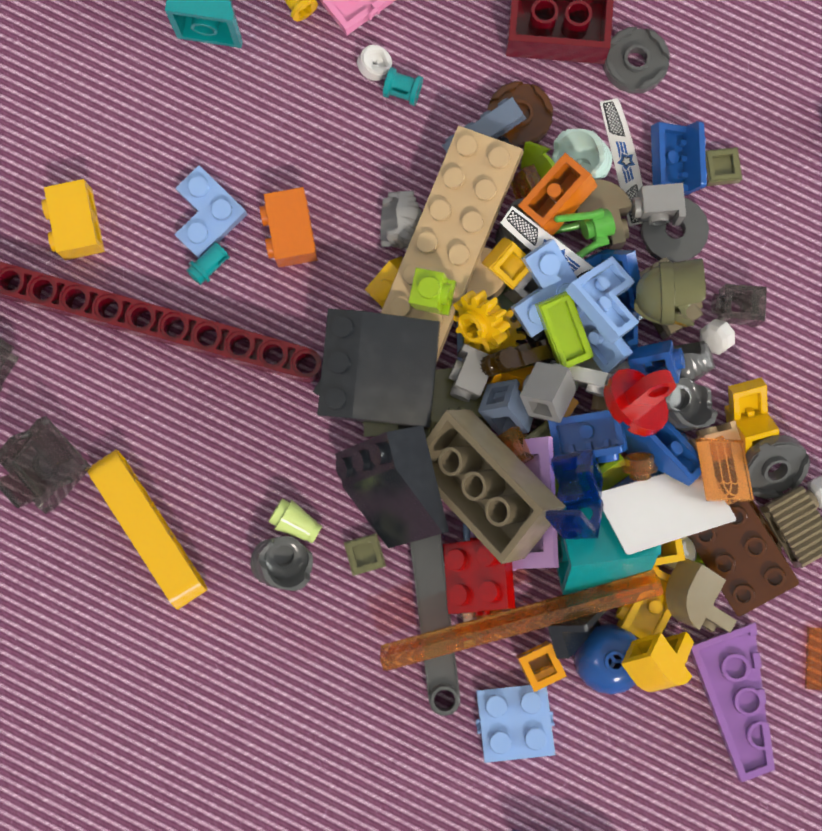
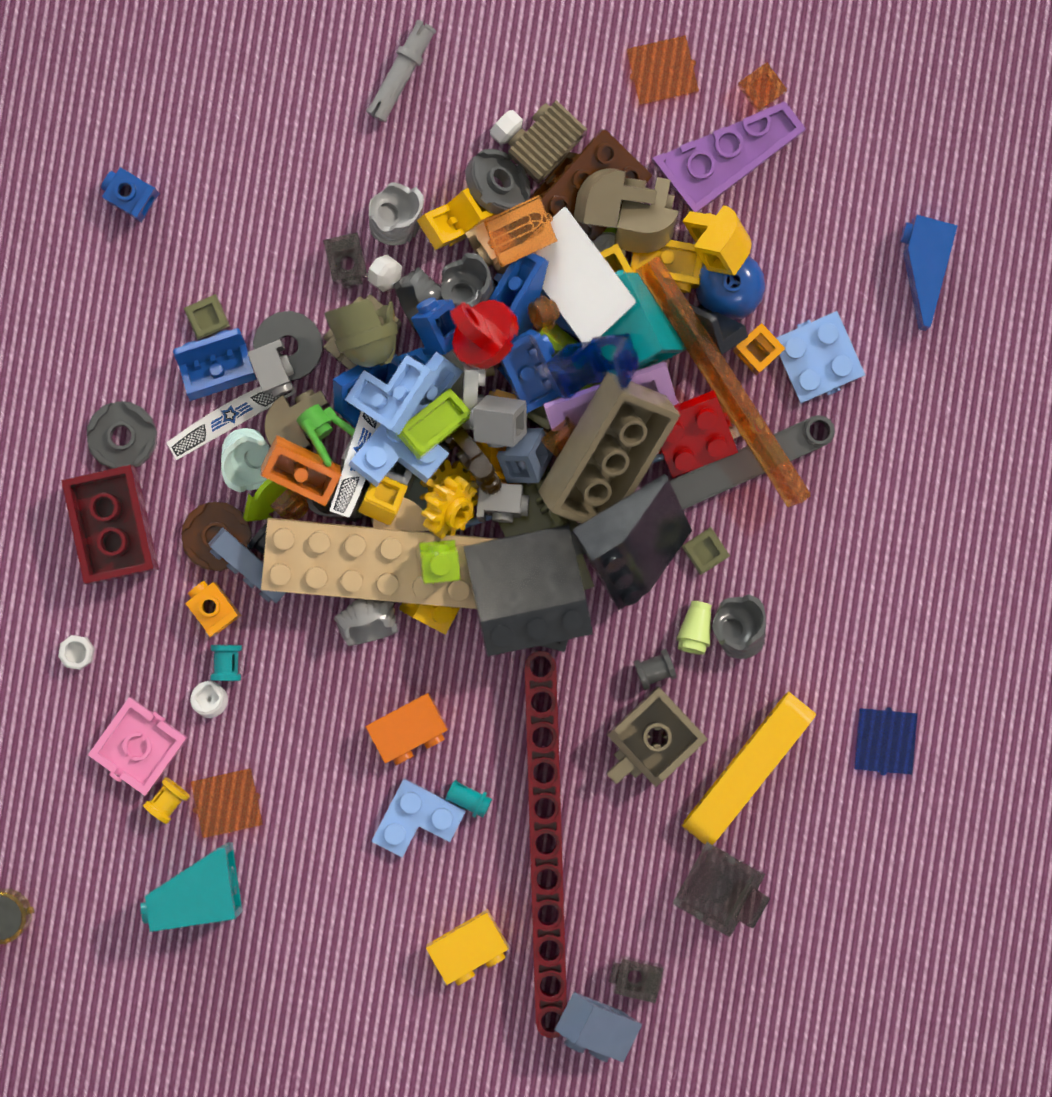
camera: 110 degrees left, 5 degrees up
(130, 668) = (885, 741): none -> clear blue piece
(184, 444) = (653, 760): none -> dark tan hinge
(269, 470) = (655, 669): none -> dark grey bush
(277, 52) = (227, 803): none -> clear orange piece
(454, 99) = (222, 616): none -> light orange brick
(737, 560) = (602, 193): none -> dark tan brick
(772, 360) = (395, 214): none -> light grey hair
(793, 752) = (762, 87): none -> clear orange plate

